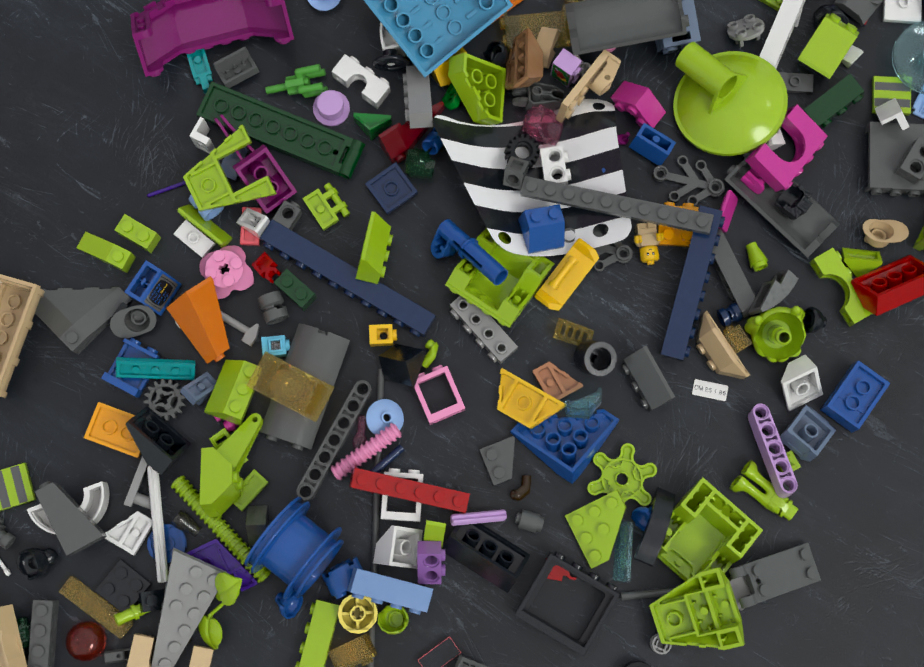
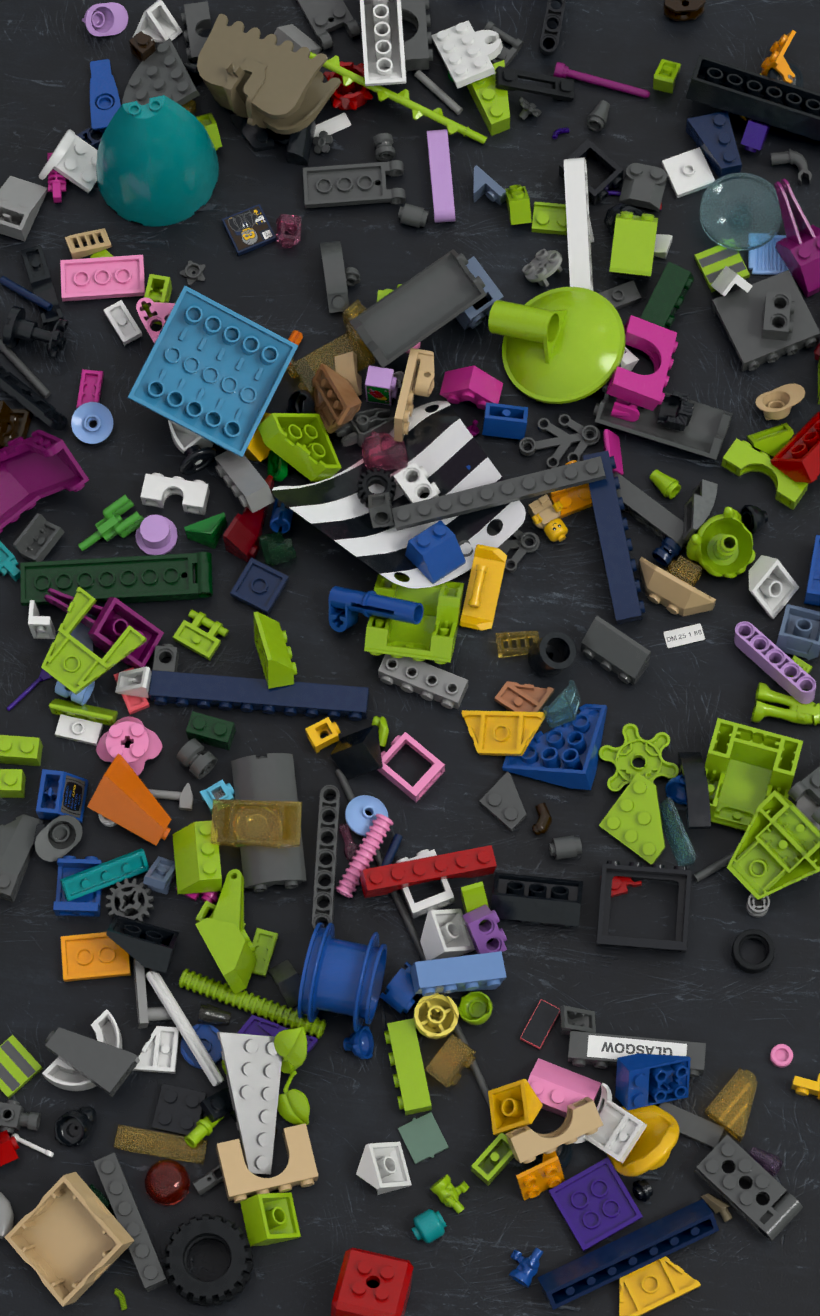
camera: 20 degrees left, 10 degrees down
(266, 267) = (169, 721): red plate -> none
(478, 517) = (511, 867): lavender axle -> none

